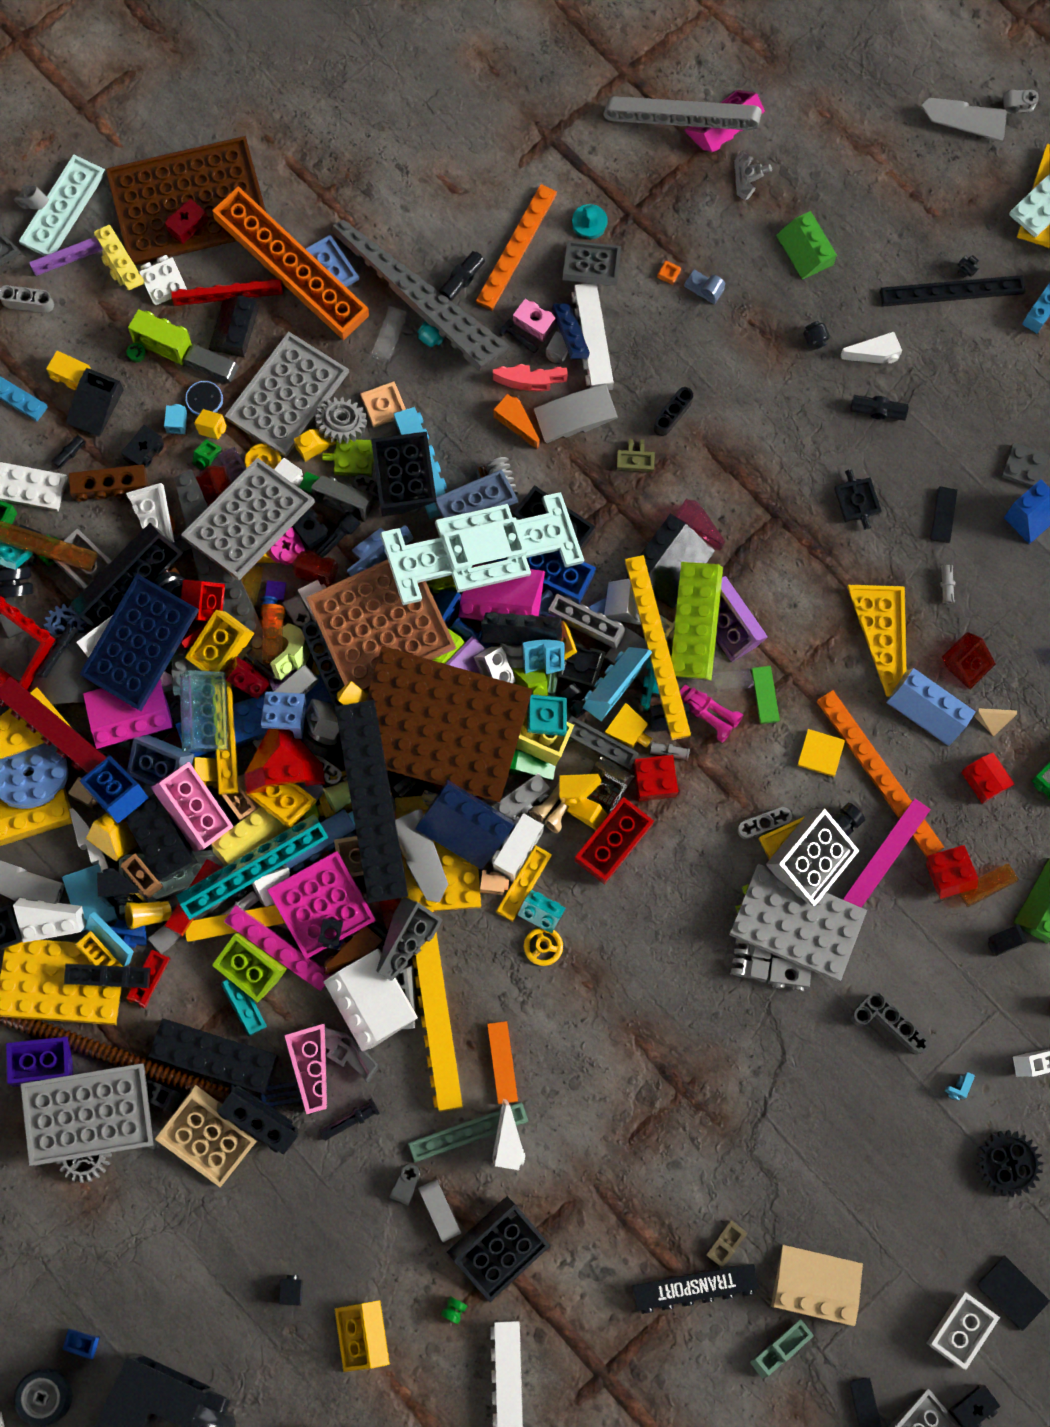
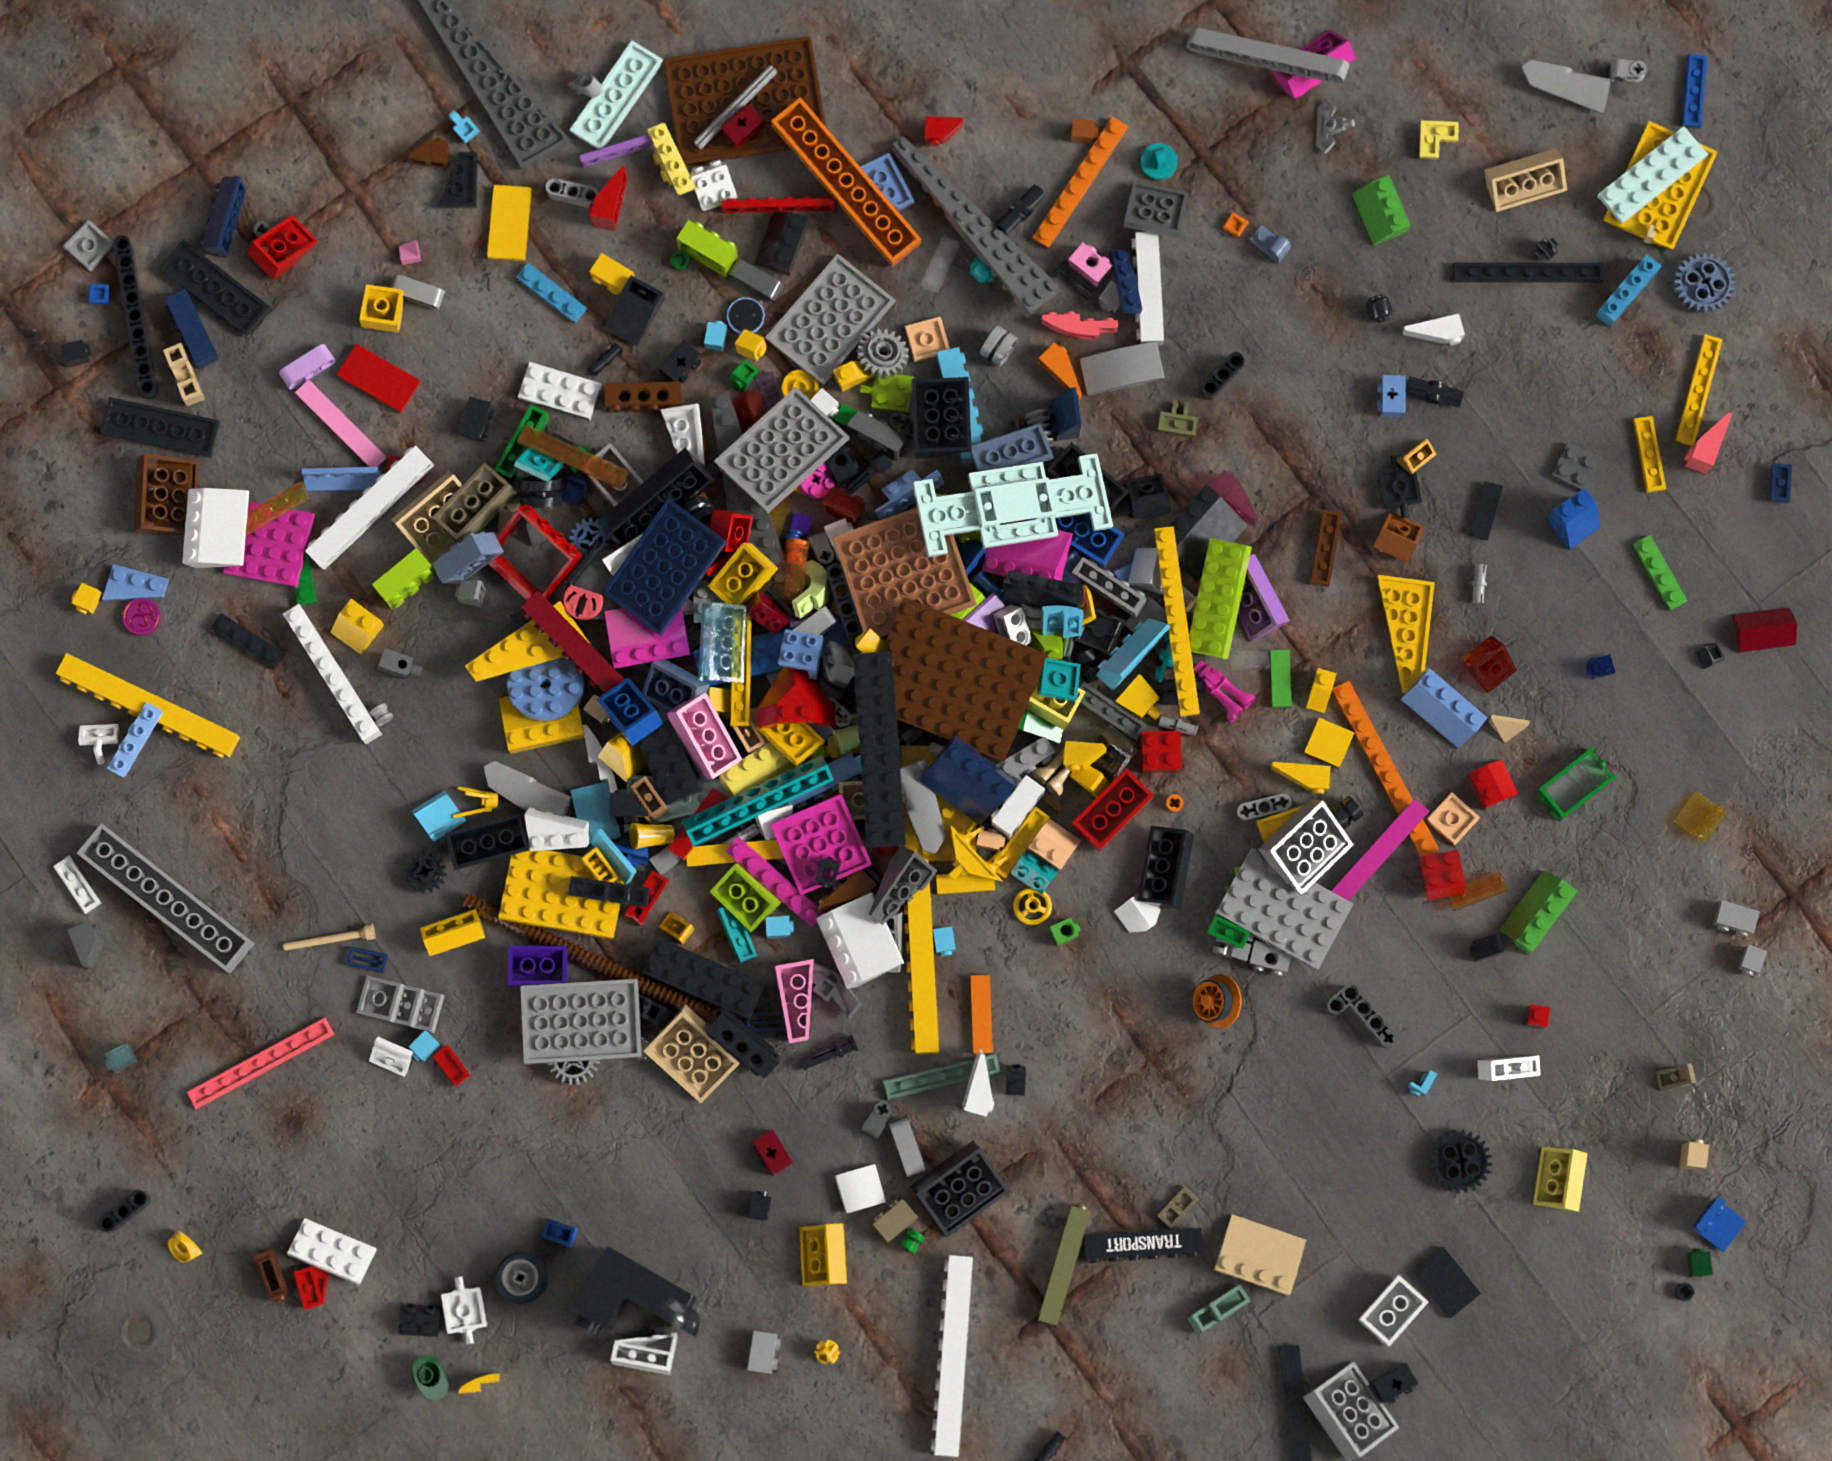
camera: 10 degrees right, 5 degrees up
(46, 579) = (574, 490): none -> clear blue bracket
(50, 683) = (589, 608): none -> coral piece
(61, 302) = (608, 202): none -> red slope
(181, 1006) = (676, 927): none -> yellow slope
(187, 194) = (732, 109): none -> light grey axle
(286, 994) = (779, 927): none -> medium azure brick
(298, 1220) = (782, 1158): none -> dark red brick
(378, 209) = (941, 129): none -> red slope
(394, 1260) = (860, 1189): none -> white slope
(434, 1290) = (895, 1220): none -> dark tan brick
(453, 402) = (999, 346): none -> light grey wheel
(457, 991) = (944, 941): none -> medium azure brick
(473, 929) = (963, 884): none -> yellow tile
(475, 906) = (968, 860): none -> yellow connector
(515, 199) = (1083, 131): none -> dark orange brick
(526, 460) = (1065, 415): none -> dark blue slope
(544, 1127) = (1015, 1080): none -> black bracket
(553, 841) = (1052, 804): none -> dark brown tile
(558, 882) = (1054, 845): none -> light nougat slope
(570, 971) = (1061, 939): none -> bright green brick
(615, 532) = (1148, 496): none -> black slope
(615, 1319) = (1064, 1265): none -> olive brick
(651, 942) = (1137, 915): none -> white slope
(673, 892) = (1165, 867): none -> black slope
(674, 834) = (1174, 797): none -> orange bush
(742, 1024) = (1217, 1001): none -> orange piece
(746, 951) = (1229, 932): none -> green plate
(794, 564) = (1326, 548): none -> reddish brown plate
(804, 787) = (1310, 777): none -> yellow slope
(807, 702) = (1321, 690): none -> yellow slope
(840, 415) = (1396, 386): none -> medium blue brick
(846, 172) = (1434, 132): none -> light yellow plate
(863, 547) = (1398, 537): none -> dark orange slope
(870, 468) = (1416, 456): none -> pearl gold slope
(939, 206) = (1526, 179): none -> tan slope
(953, 815) = (1452, 818): none -> light nougat tile

